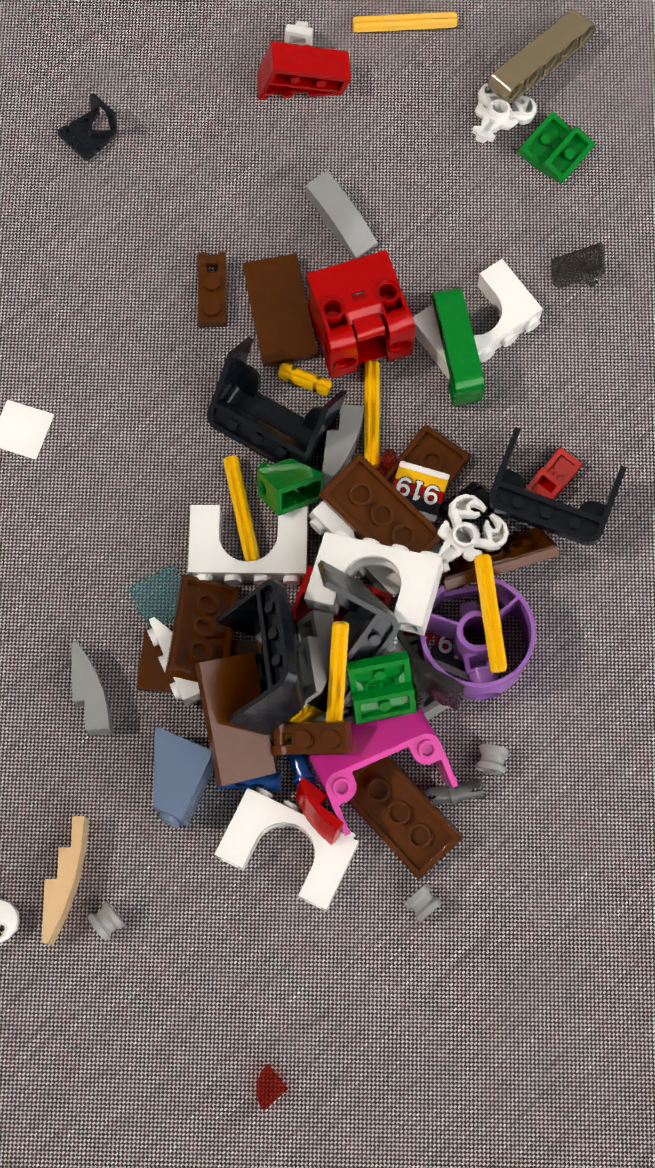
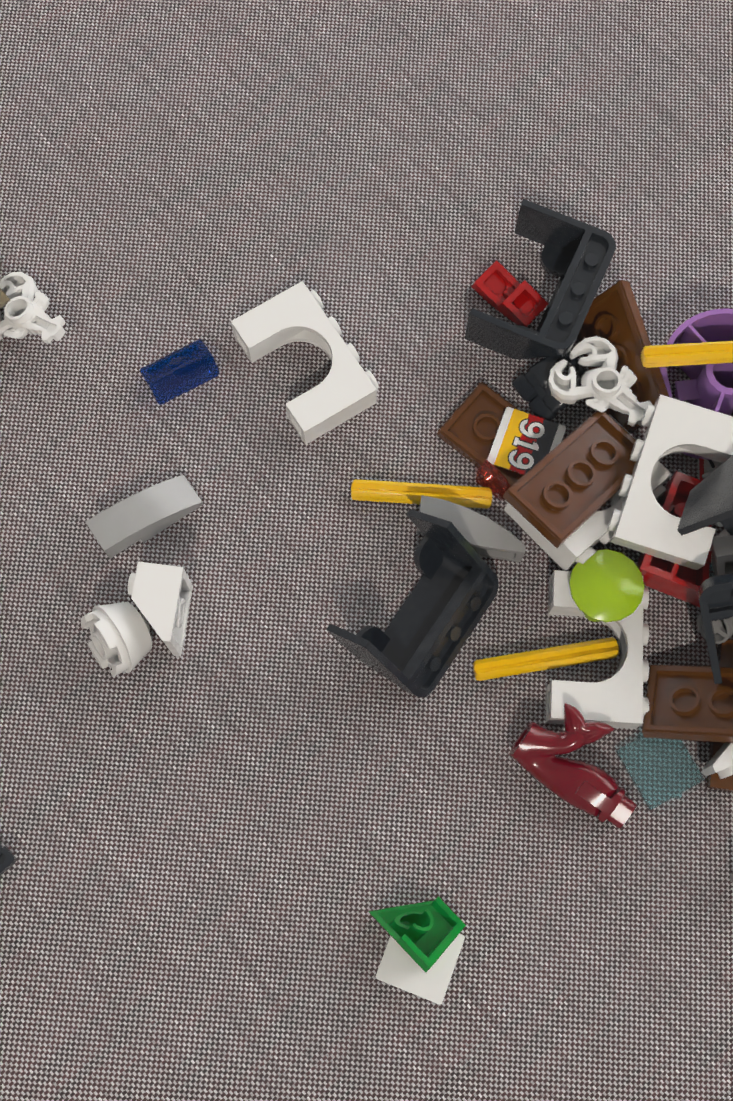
camera: 90 degrees left, 0 degrees up
(36, 422) = (421, 929): none -> green slope
(147, 526) = (573, 780): none -> dark red piece
(212, 290) = (233, 687): reddish brown plate -> none
(243, 203) = (118, 636): none -> white cone
(265, 229) = (164, 599): none -> white slope
(280, 310) = (268, 600): reddish brown tile -> none
(288, 485) = (525, 594): green torso -> none
(293, 541) = (607, 586): none -> lime dish
(305, 379) = (369, 572): yellow axle -> none
(359, 325) = (307, 492): red piece -> none
(459, 346) = (349, 374): green beam -> none
(463, 233) = (180, 372): none -> clear blue slope
(556, 148) = (74, 257): green slope -> none
(580, 265) = (245, 238): clear smoke slope -> none

